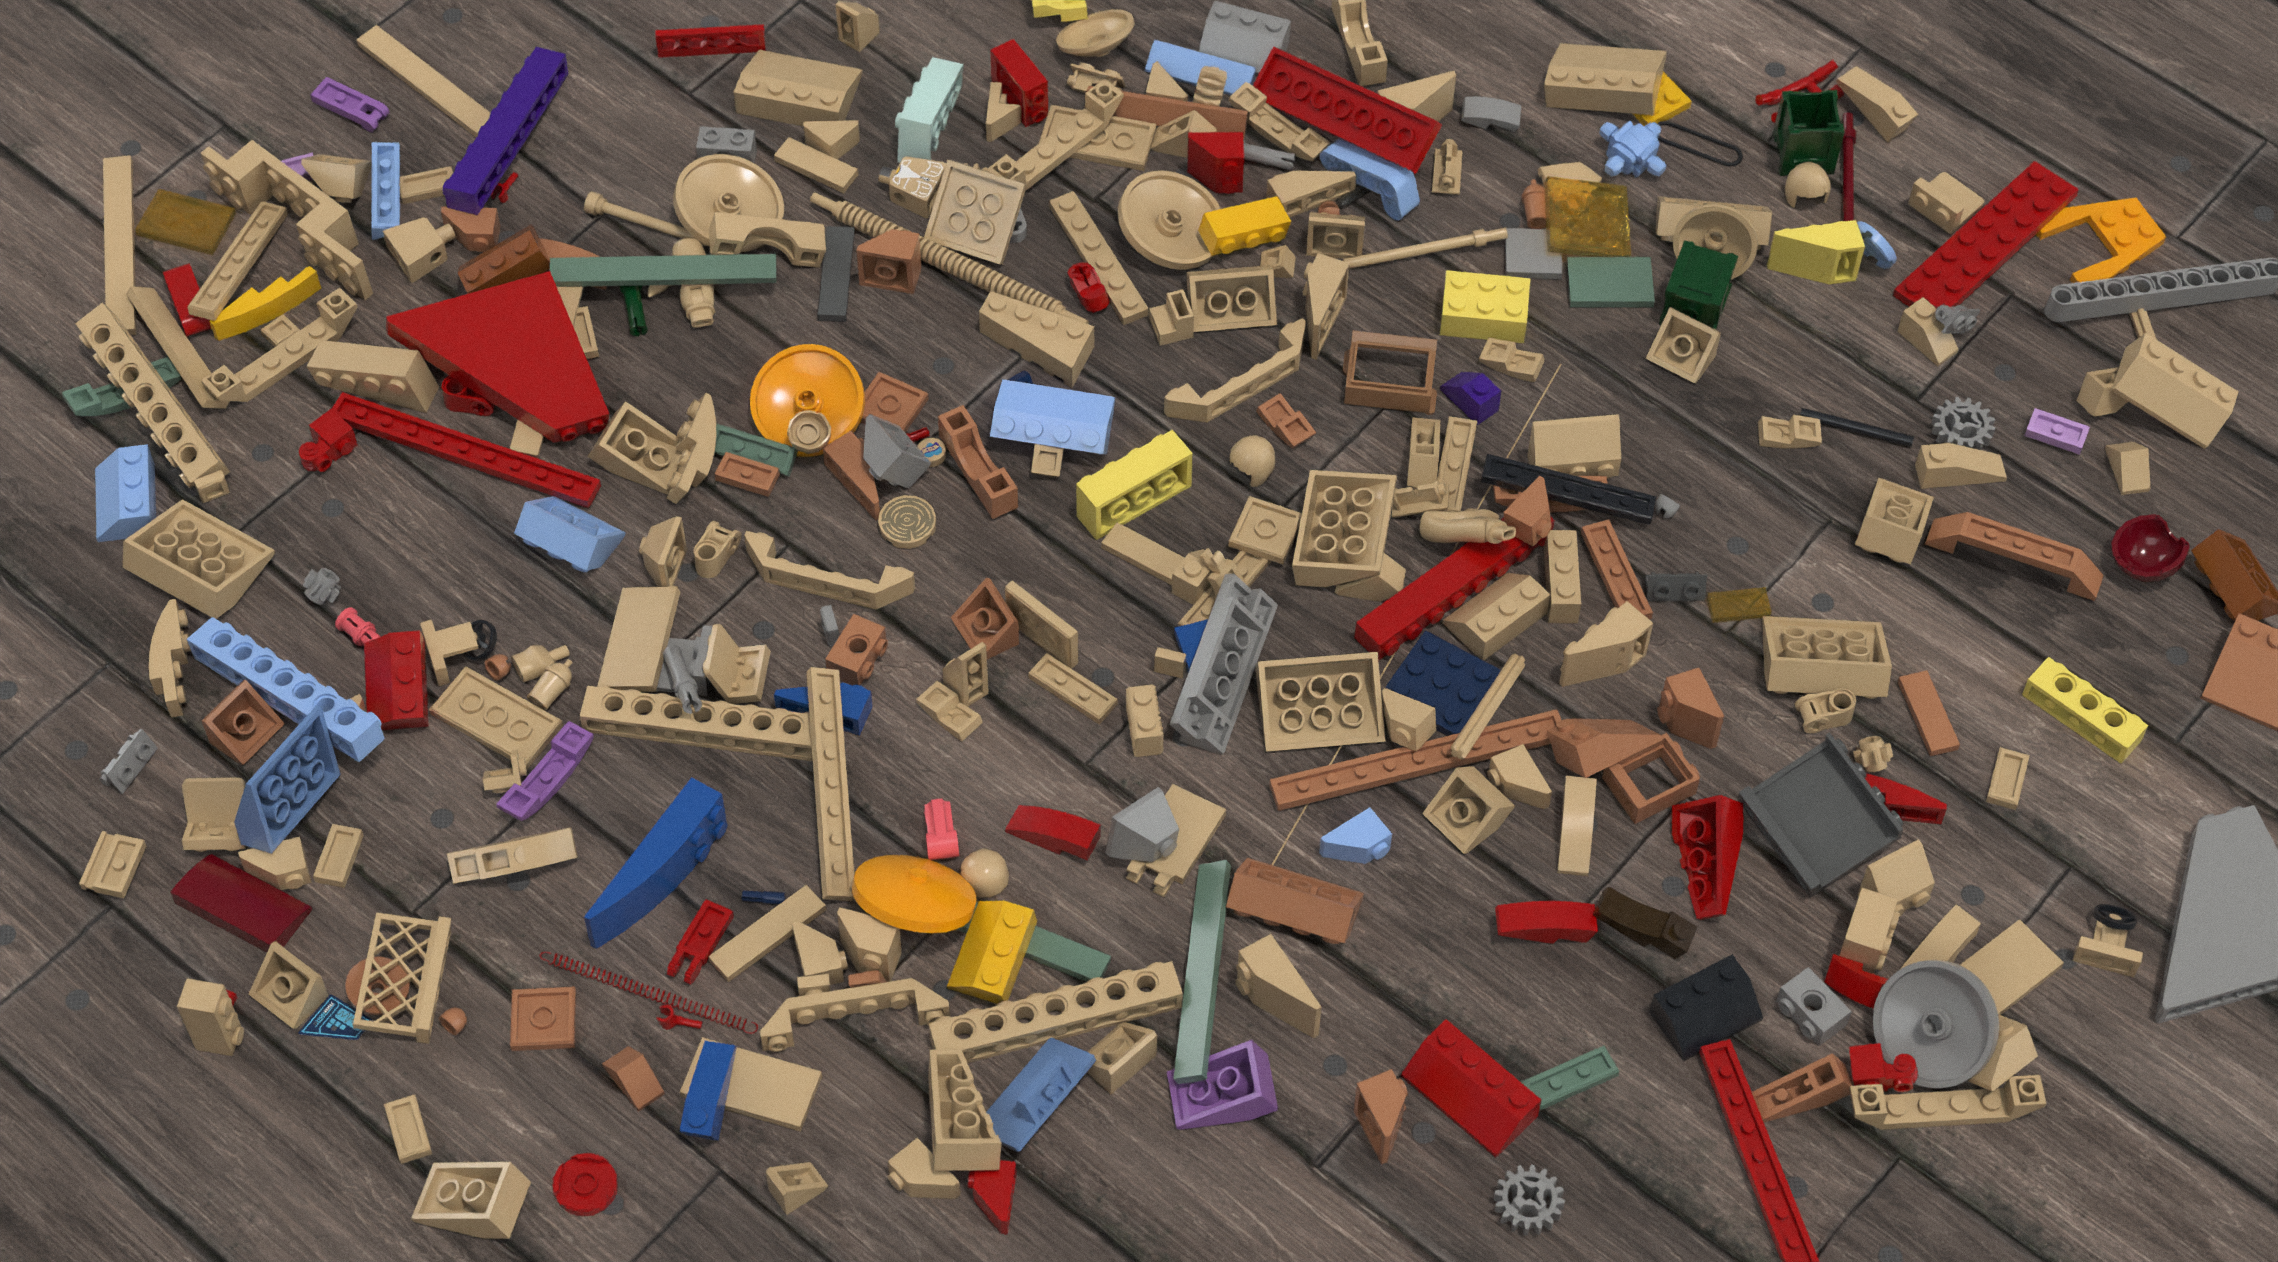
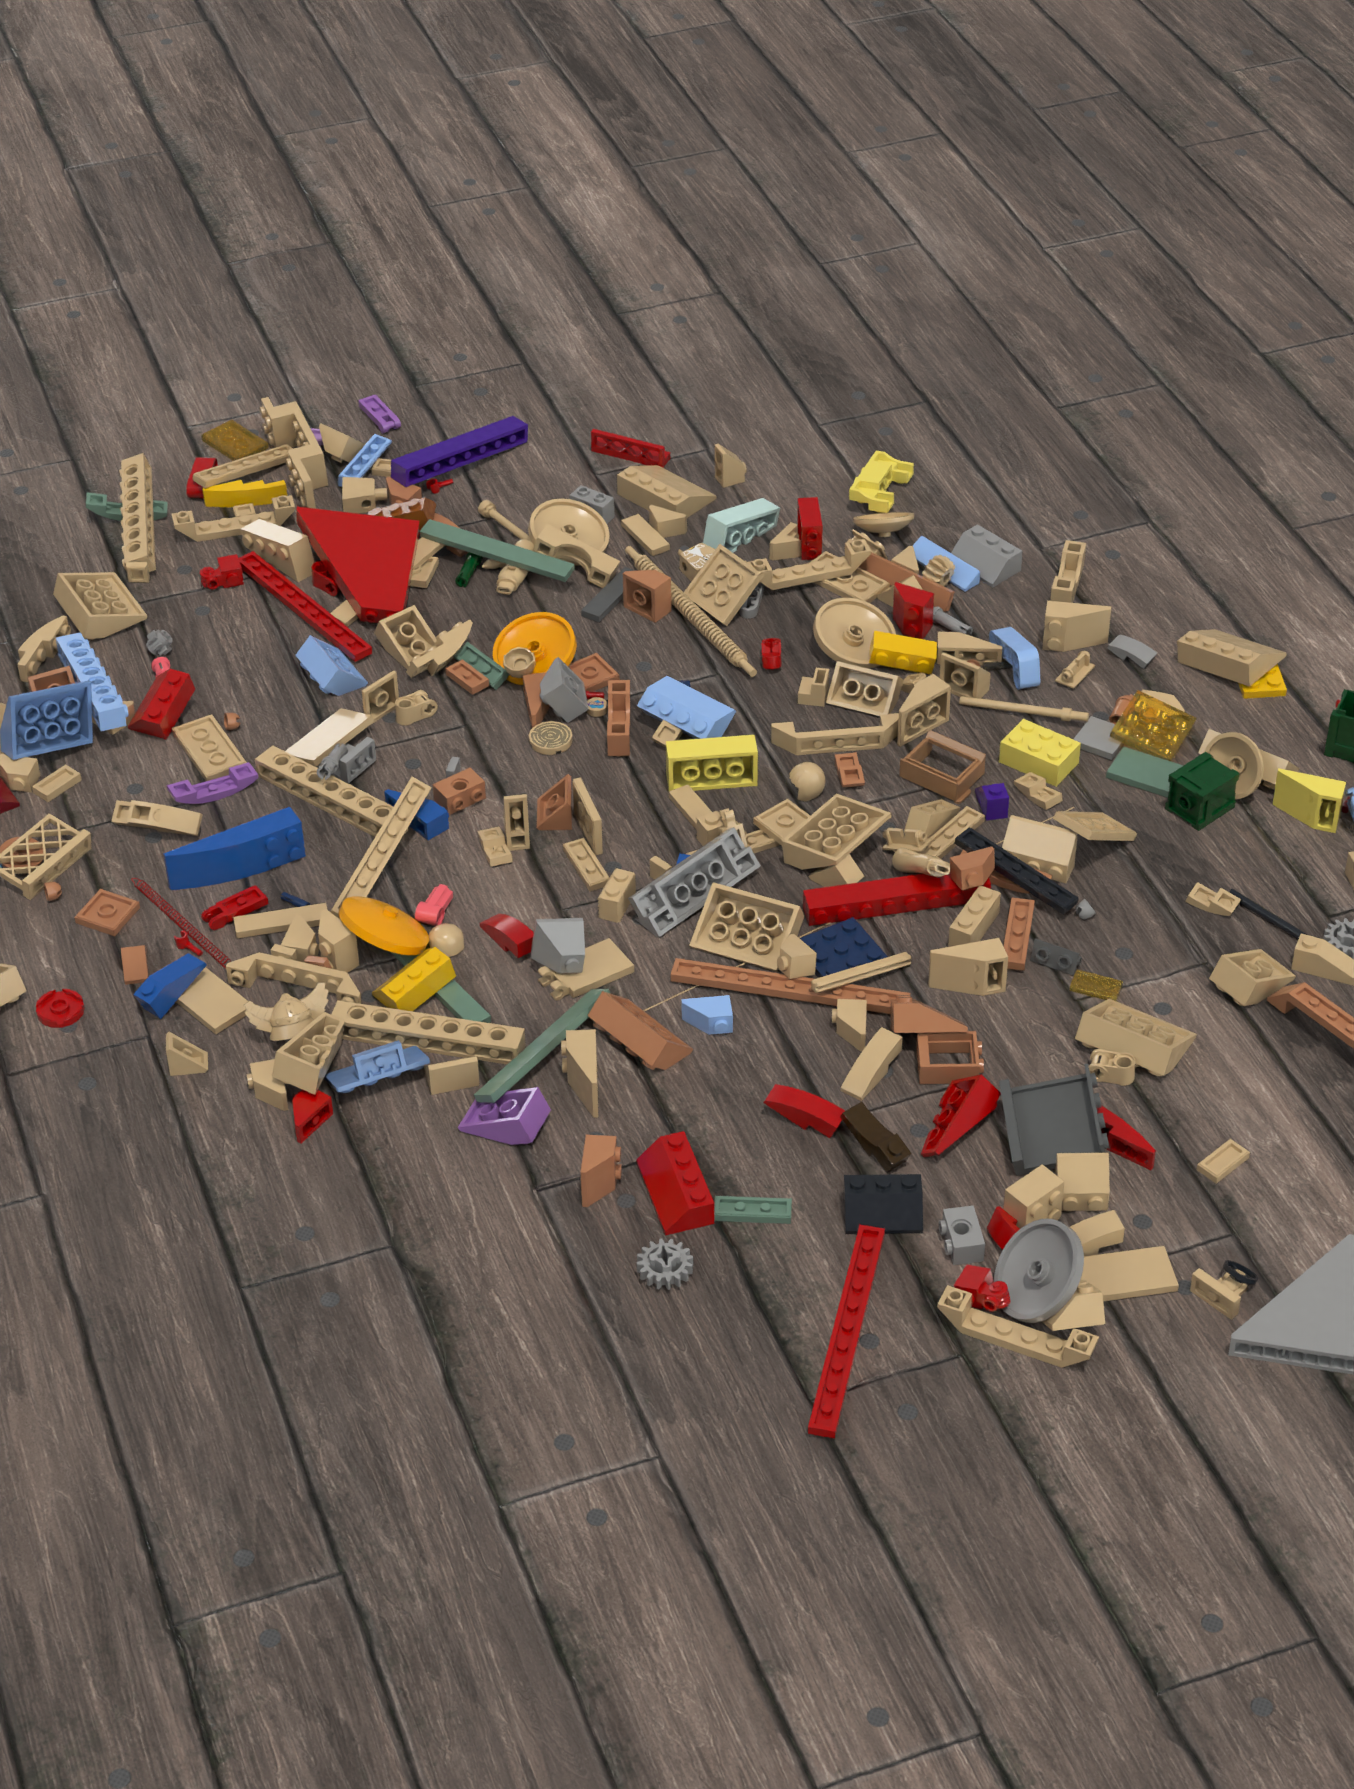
camera: 30 degrees right, 15 degrees down
(119, 238) = (187, 439): tan tile -> none
(124, 493) = (91, 555): light blue slope -> none
(174, 343) = (175, 495): tan tile -> none
(424, 79) = (434, 413): tan tile -> none
(456, 641) = (210, 694): tan piece -> none
(502, 779) = (196, 774): tan bracket -> none
(533, 661) = (258, 727): tan piece -> none
(551, 684) = (254, 741): tan piece -> none
(735, 670) = (370, 768): tan bracket -> none
(890, 1074) = (288, 1014): none -> tan helmet
(893, 585) = (504, 767): tan slope -> none
(1038, 335) = (717, 667): tan wedge -> none
(1095, 251) = (793, 642): tan plate -> none
(1275, 126) = (970, 608): tan slope -> none
(1346, 110) = (1018, 606): red plate -> none
(1468, 808) = (802, 1025): tan slope -> none
(1499, 614) = (913, 929): tan slope -> none
(1619, 391) = (1095, 826): none -> tan tile
(1632, 149) = (1218, 700): light blue piece -> none
(1684, 346) = (1169, 822): tan slope -> none
(1691, 708) = (1004, 1022): nougat slope -> none
(1702, 136) = (1272, 723): black piece -> none
(1804, 1089) = (916, 1280): nougat slope -> none
(1807, 181) = (1336, 757): tan hair -> none
(1873, 753) = (1125, 1104): tan gear -> none
(1928, 713) = (1191, 1099): nougat tile -> none
(2092, 724) = (1314, 1140): light yellow brick -> none

